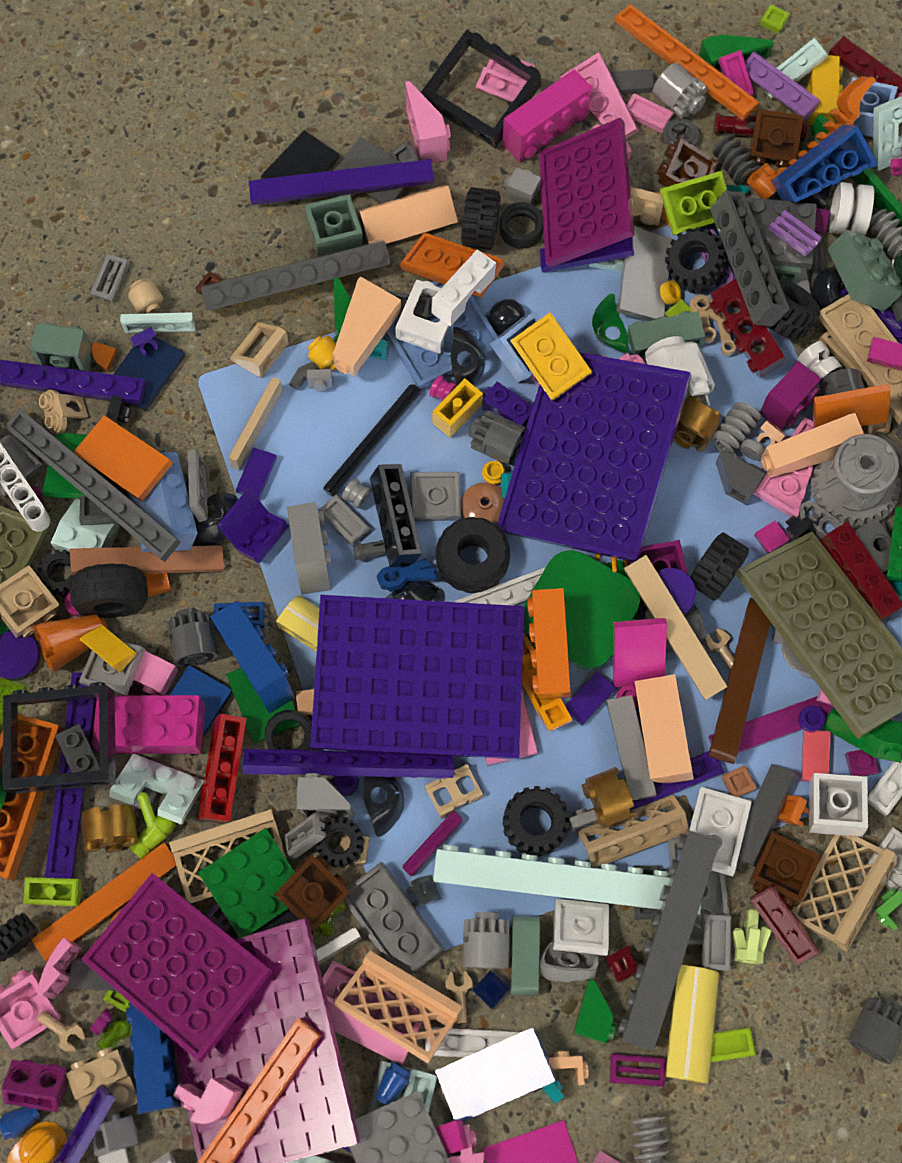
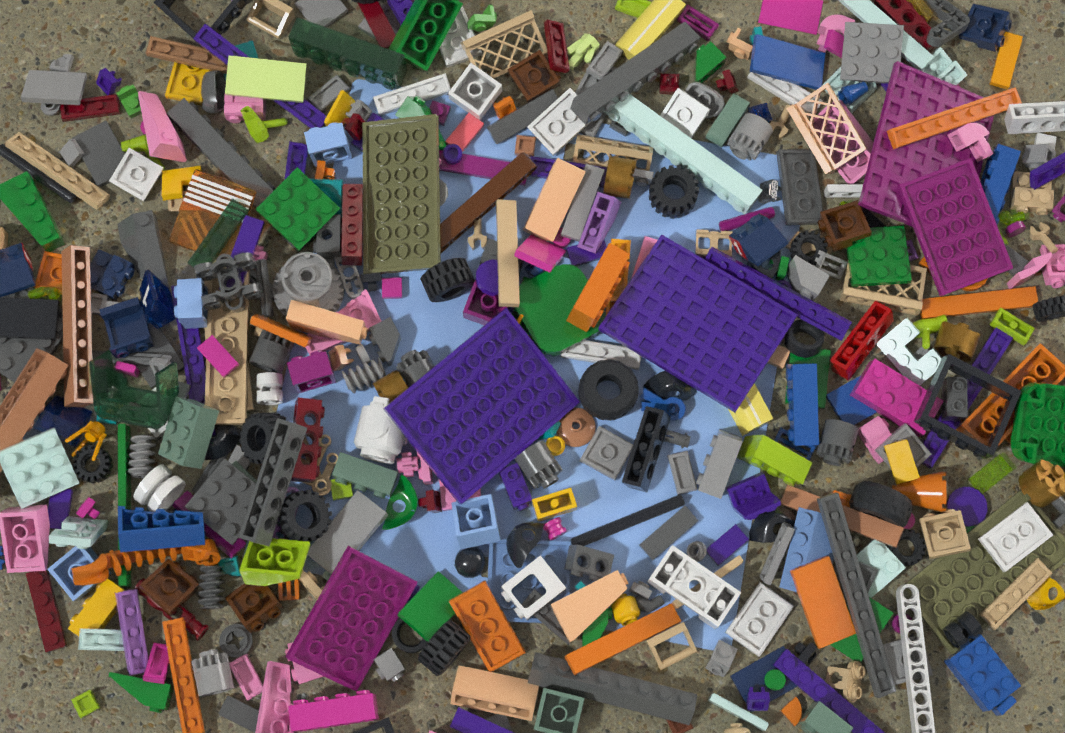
camera: 150 degrees left, 5 degrees up
(136, 367) = (774, 680): none -> green tile
(183, 420) = (759, 619): none -> white tile
(201, 363) = (721, 658): none -> light grey bracket
(252, 580) = (774, 459): none -> lime wedge
(284, 447) = (693, 548): none -> light grey plate
(292, 402) = (712, 599): none -> white plate
(310, 319) = (622, 639): none -> orange tile
(323, 452) = (668, 533): none -> dark grey tile
(356, 493) = (663, 484): light grey wheel -> none
(359, 804) = (782, 268): none -> green tile
(389, 378) = (589, 559): none -> dark grey brick
(404, 815) = (758, 239): none -> dark blue slope
(471, 277) = (498, 583): white arch -> none
(519, 245) = (430, 606): none -> green tile
(551, 356) = (469, 490): yellow tile -> none
(552, 1007) = (727, 82): none -> dark red tile
(584, 344) = (431, 501): none -> dark red tile
(597, 734) = (599, 222): none -> medium lavender slope
(670, 292) = (338, 508): yellow tile -> none
(686, 460) = (414, 366): none -> dark grey gear
(797, 231) = (213, 487): medium lavender tile -> none

